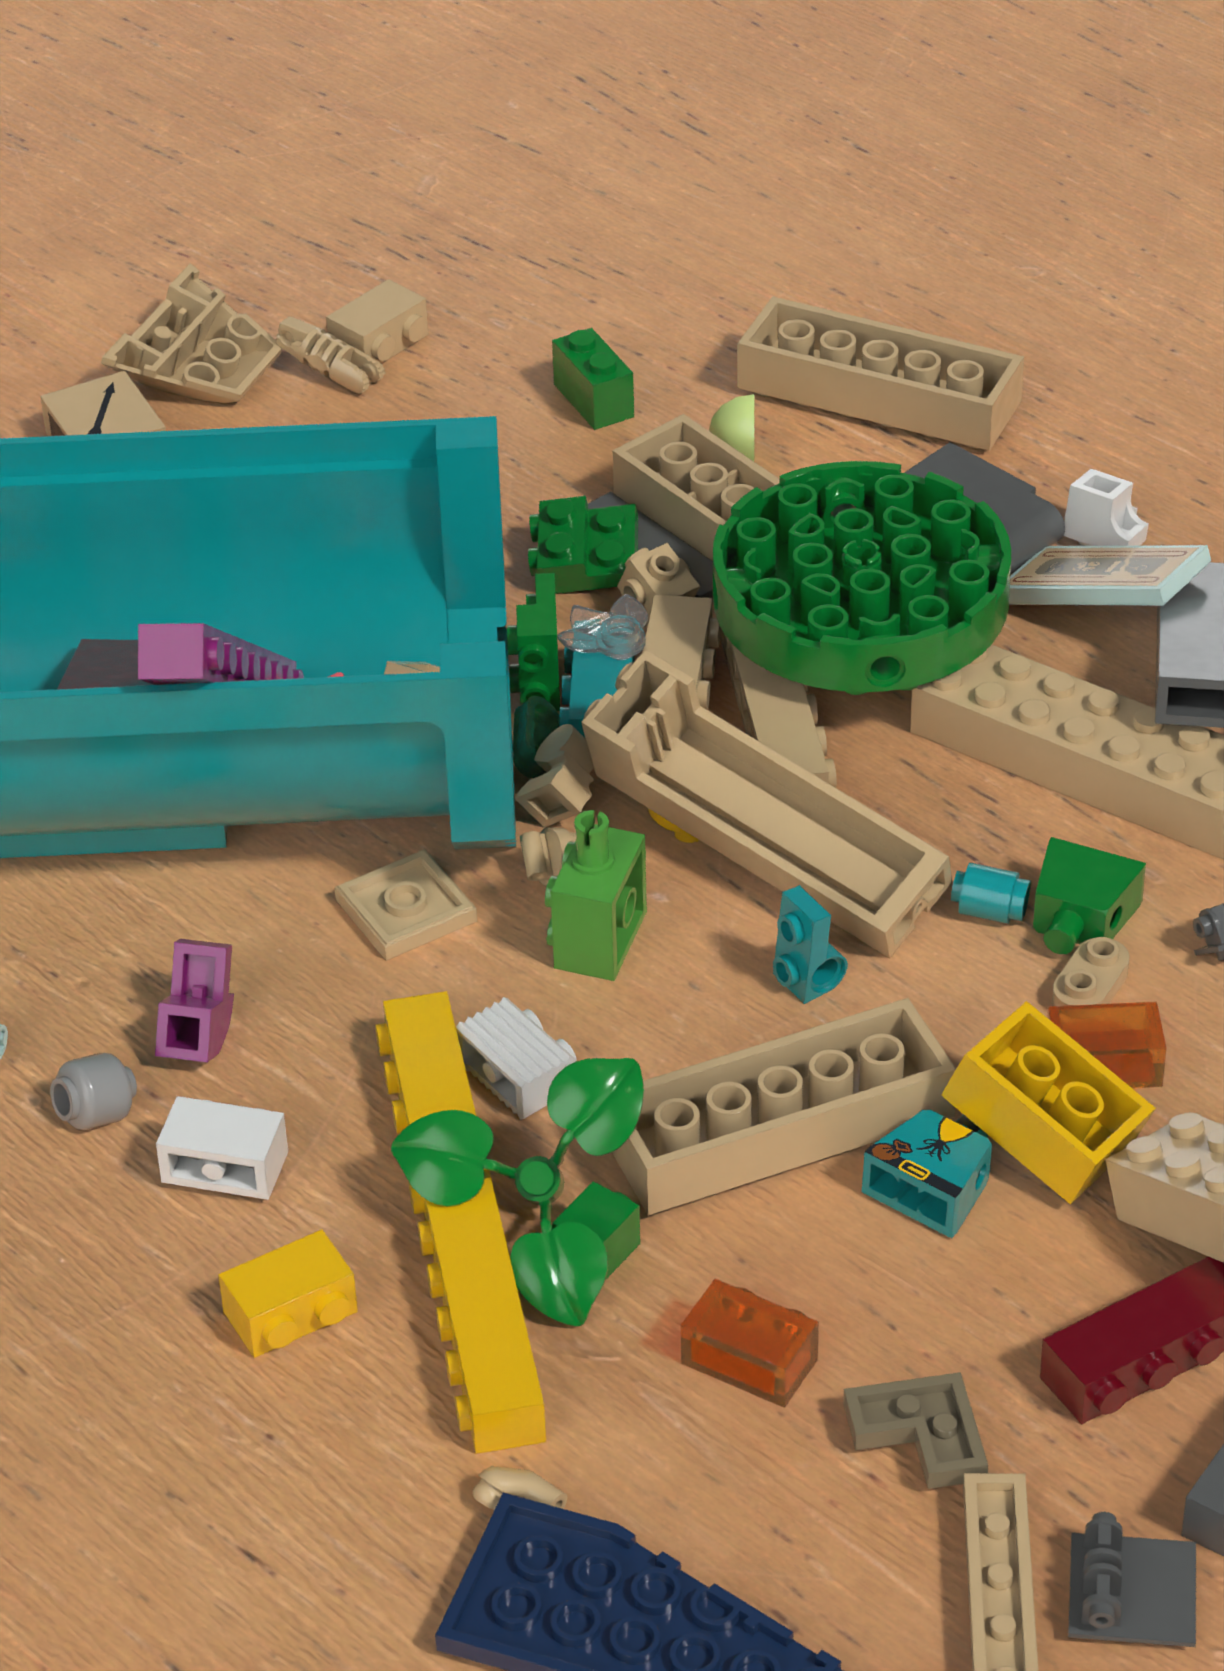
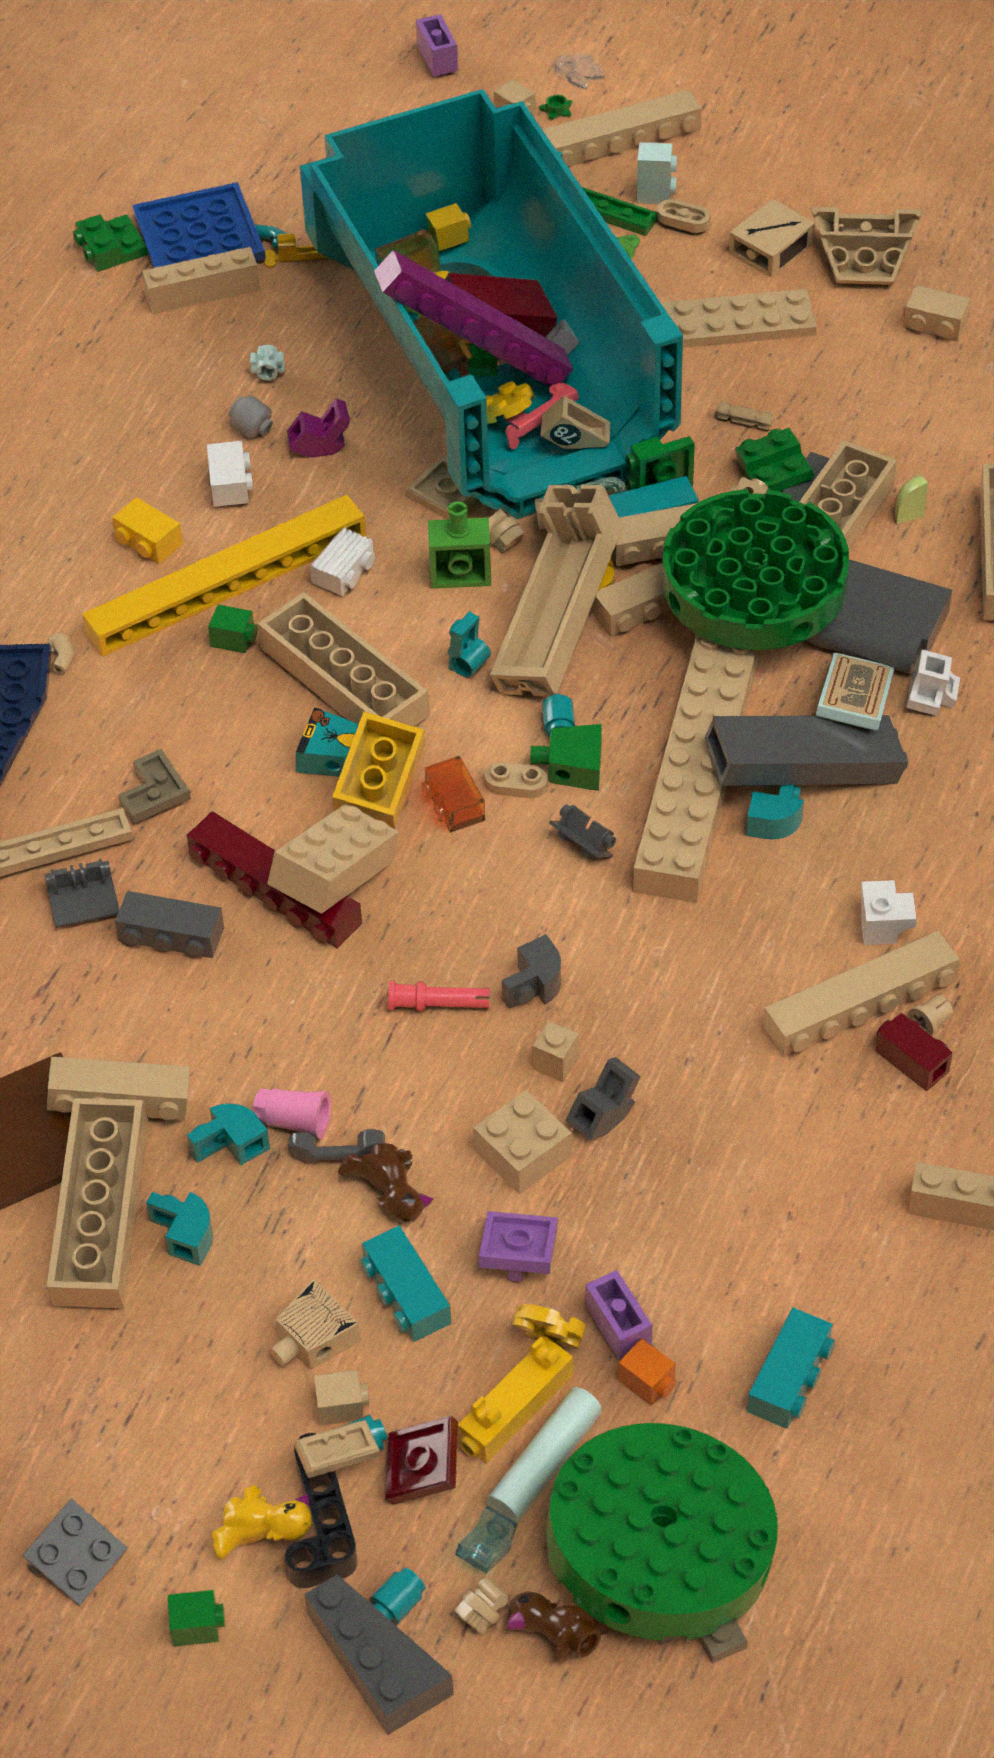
camera: 70 degrees right, 10 degrees up
(329, 355) = (894, 302): tan hinge -> none
(447, 1159) = (258, 591): green plant -> none
(593, 378) = (936, 419): green brick -> none
(612, 633) = (680, 487): clear plate -> none
(749, 1342) = (181, 706): clear orange piece -> none

